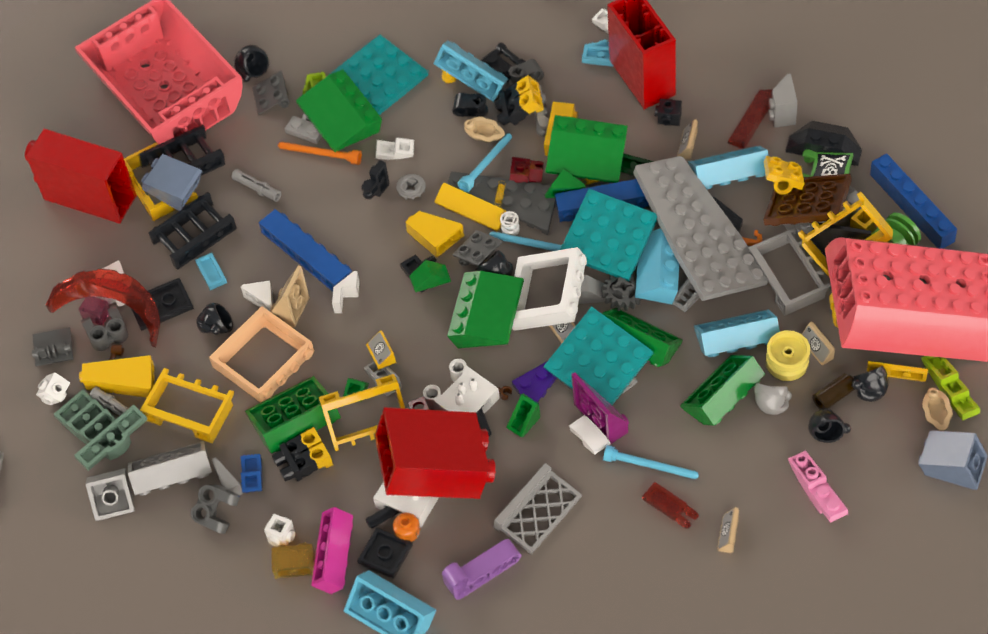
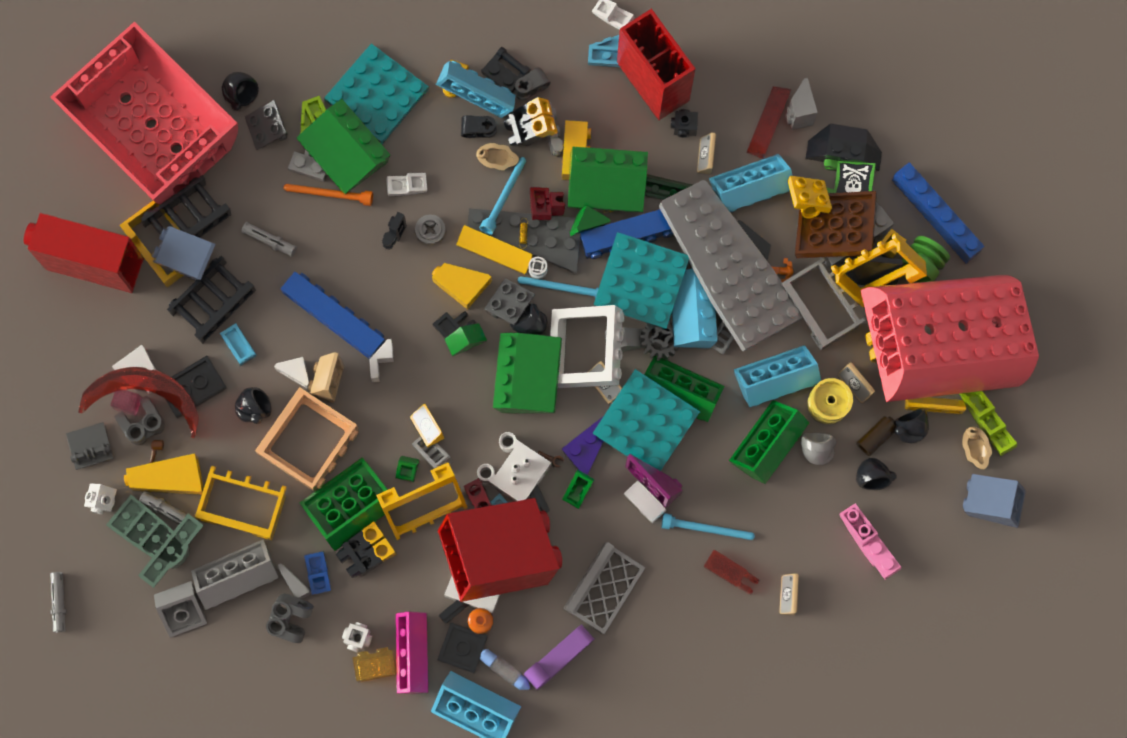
camera: 15 degrees left, 20 degrees up
(424, 576) = (504, 670): none -> piece

